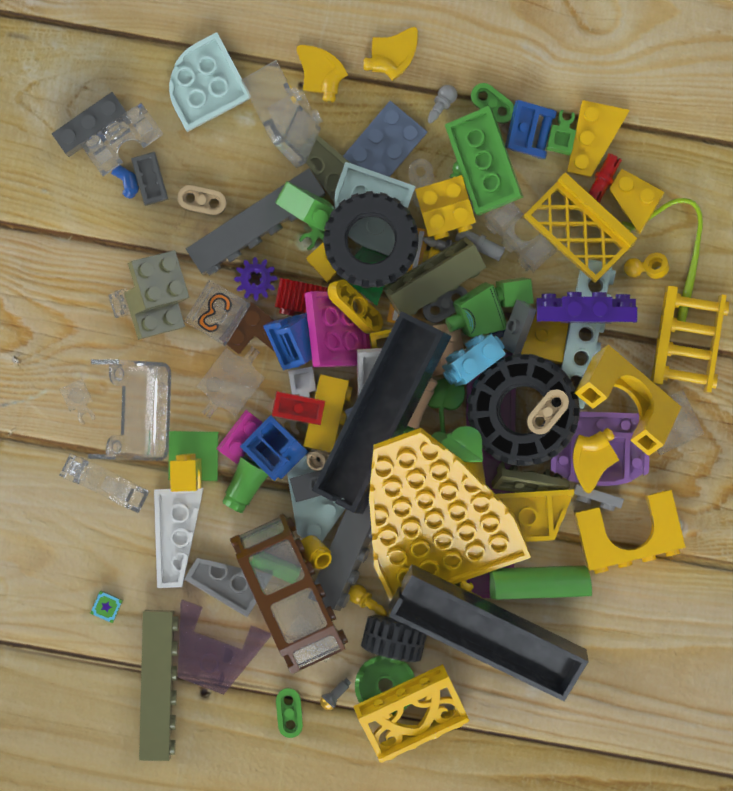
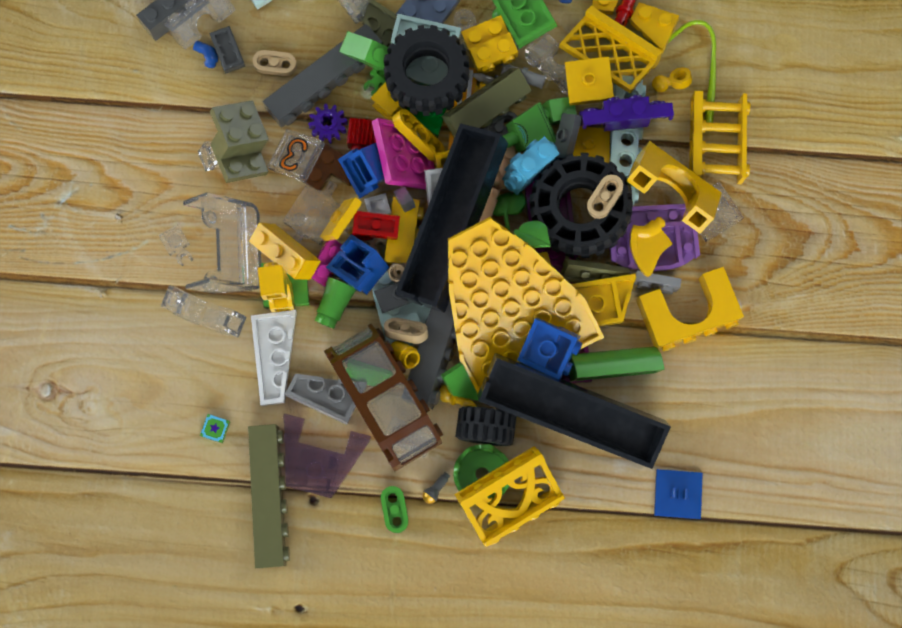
camera: 10 degrees left, 10 degrees down
(196, 424) = (285, 251): none -> yellow brick
(260, 398) = (340, 219): none -> yellow plate
(321, 526) = (406, 330): none -> tan plate
(332, 381) = (404, 199): none -> flat silver piece
(371, 588) = (459, 382): none -> bright green tile
(470, 567) = (550, 349): none -> blue plate
(551, 266) = (589, 81): none -> yellow plate
(591, 726) = (678, 494): none -> blue piece

